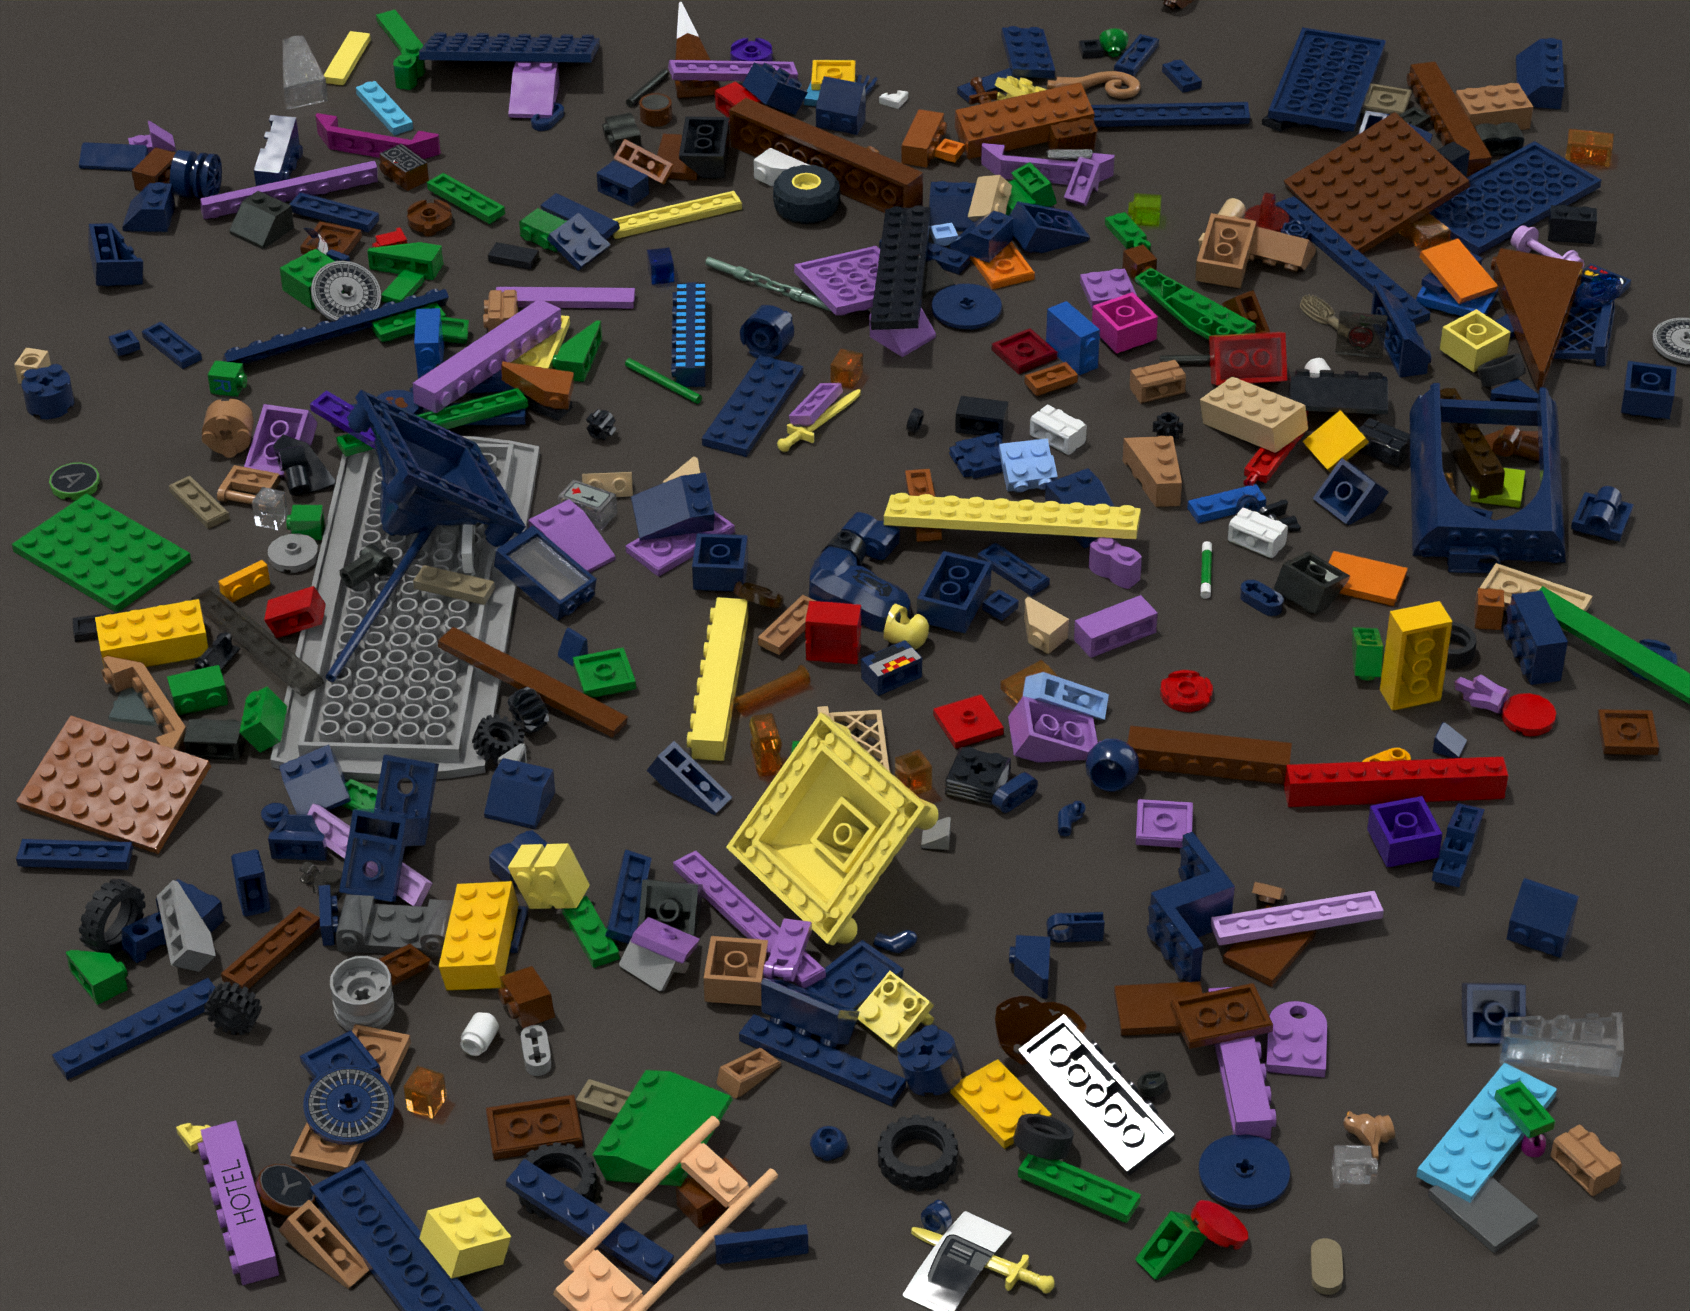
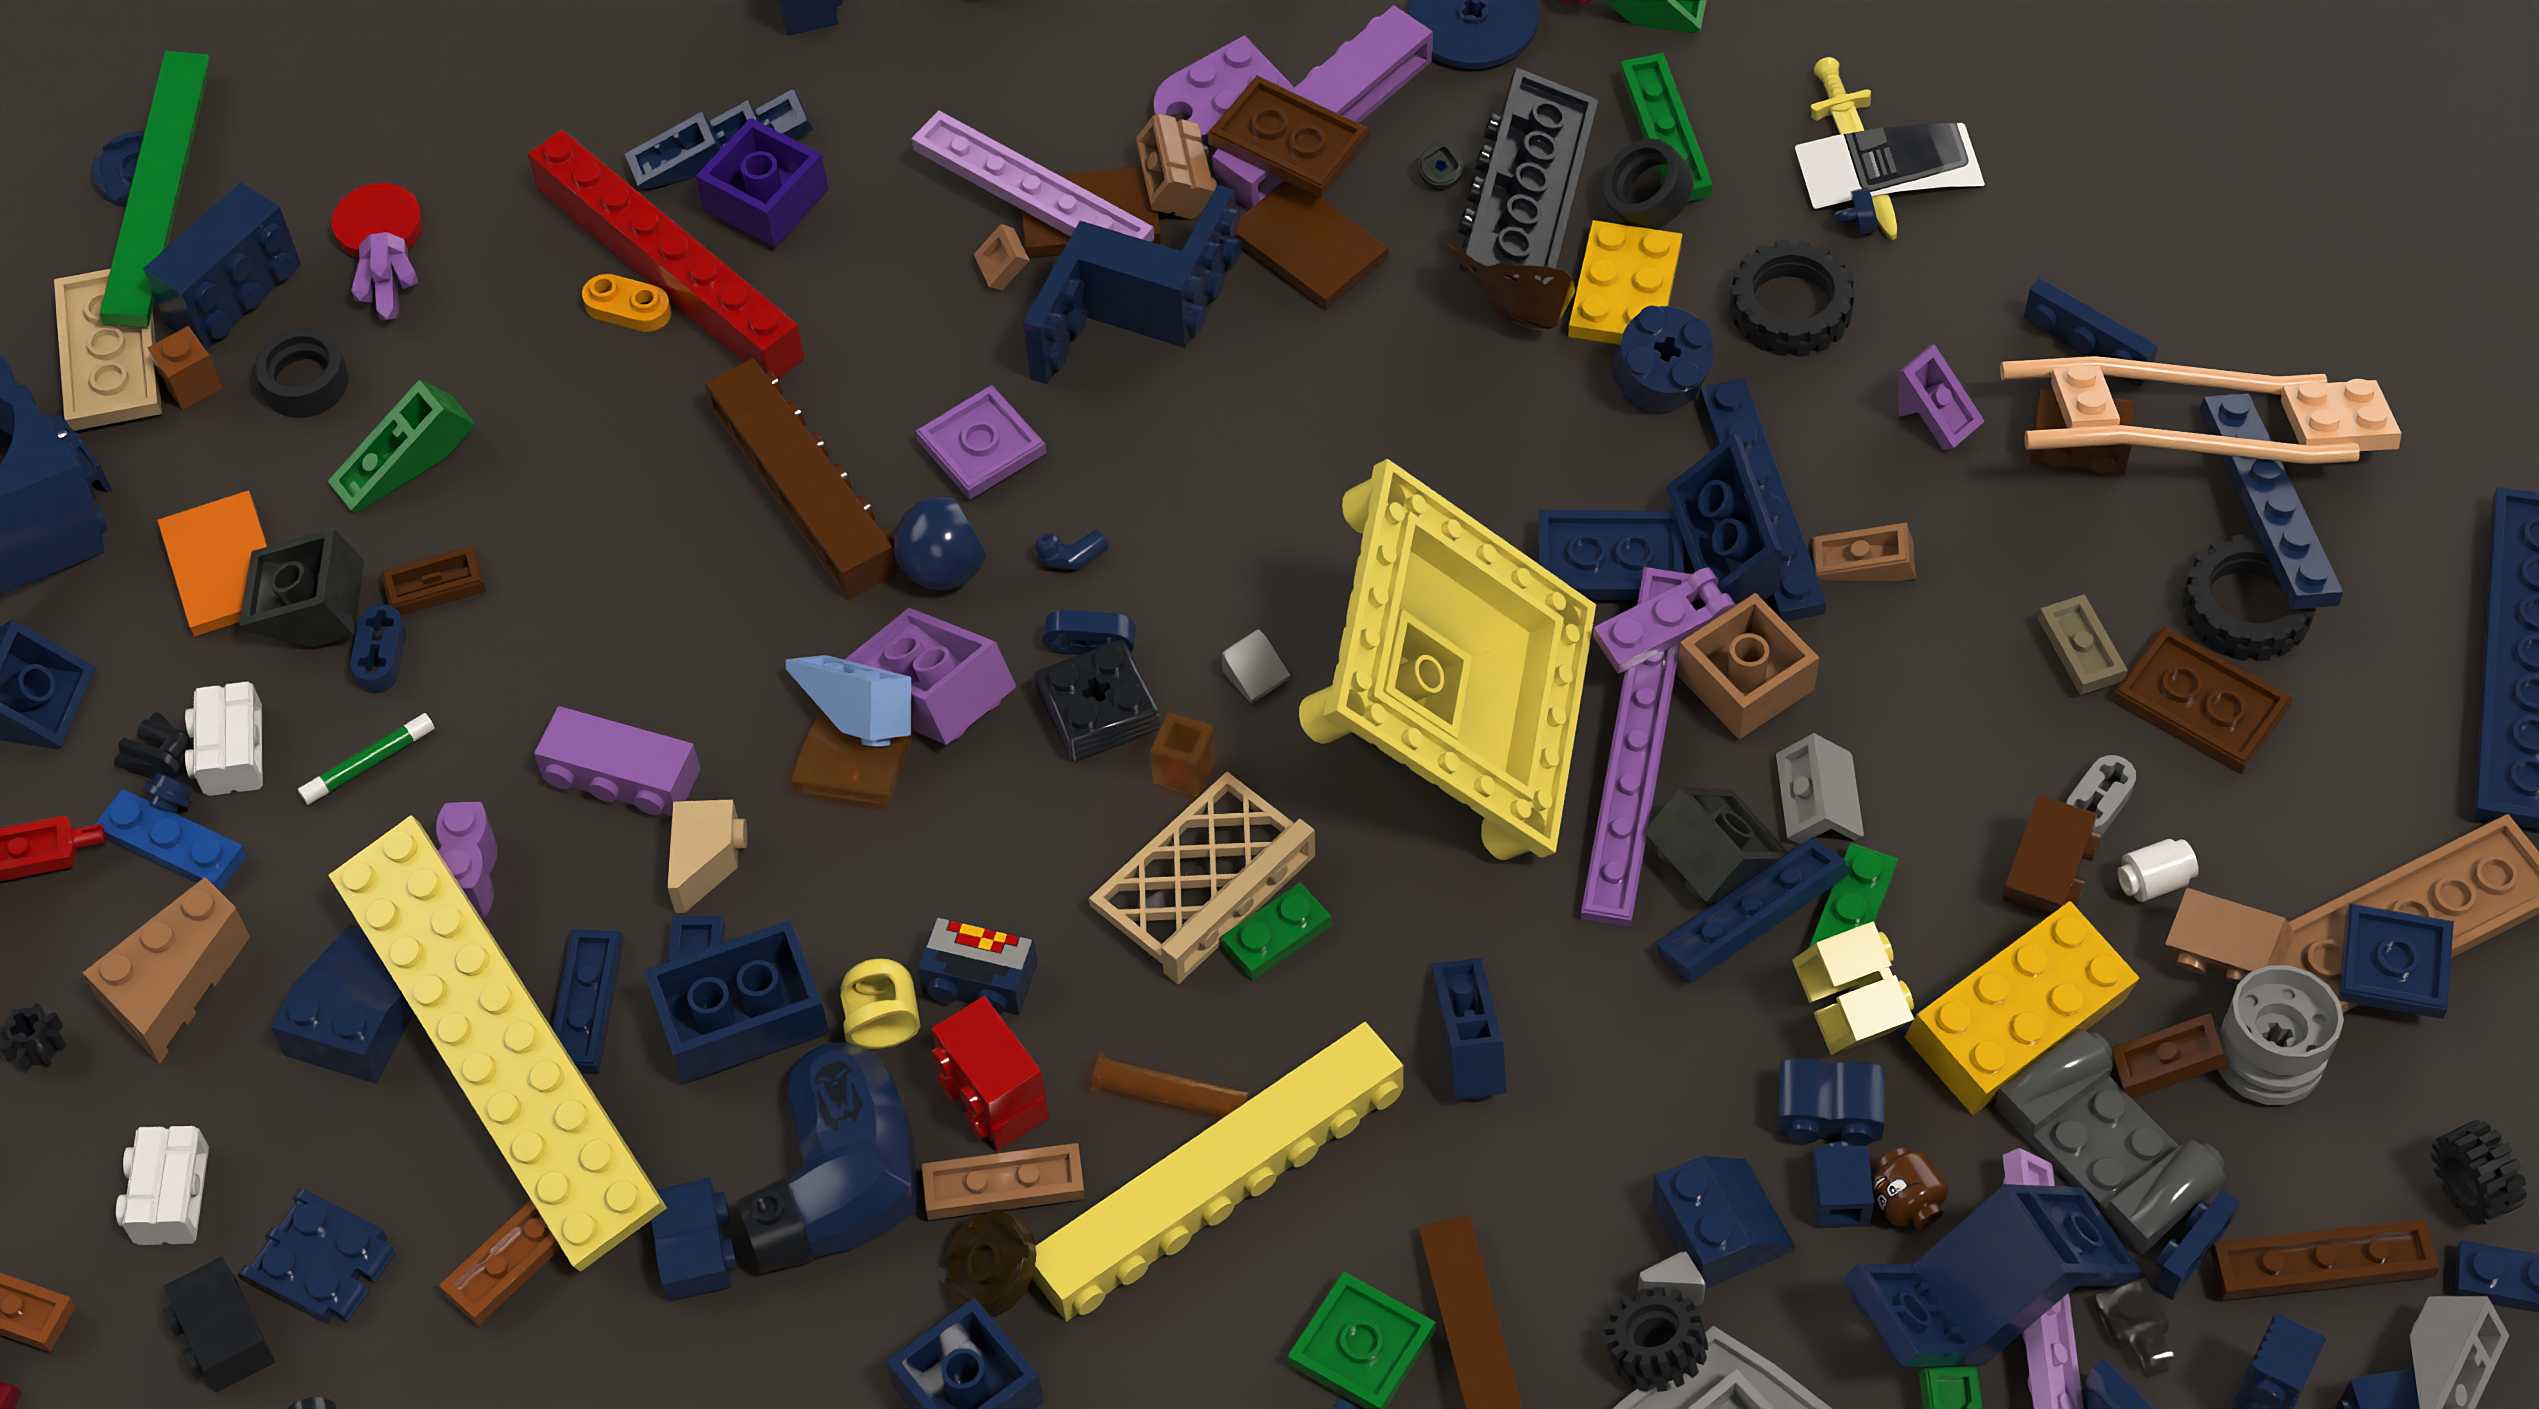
camera: 130 degrees left, 15 degrees up
(329, 1115) = (2471, 903): piece -> none
(418, 1017) = (2226, 936): none -> medium nougat brick
(425, 1092) = (2311, 837): clear orange brick -> none
(457, 849) = (1909, 1188): none -> reddish brown head
(465, 1237) = (2446, 587): light yellow brick -> none
(484, 834) = (1841, 1186): none -> dark blue brick
(528, 710) = (1561, 1349): black gear -> none
(654, 1123) = (2071, 528): green slope -> none
(665, 940) = (1789, 782): medium lavender plate -> none
(765, 744) = (1316, 963): clear orange brick -> none
(790, 1146) = (1936, 394): none -> medium lavender slope
(828, 1143) = (1869, 404): dark blue plate -> none
(894, 1010) = (1615, 464): light yellow plate -> none
(968, 721) = (990, 802): red plate -> none
(1027, 465) = (311, 1147): light blue plate -> none
(1032, 962) = (1376, 395): dark blue slope -> none
(1080, 927) = (1271, 396): dark blue piece -> none
(1186, 691) = (674, 603): red tile -> none
(1268, 979) = (1175, 166): none -> medium nougat brick
(1278, 643) = (433, 588): none -> reddish brown tile
(1415, 655) = (422, 311): yellow brick -> none
(1448, 742) = (518, 266): slope -> none
(1628, 732) = (328, 103): reddish brown plate -> none

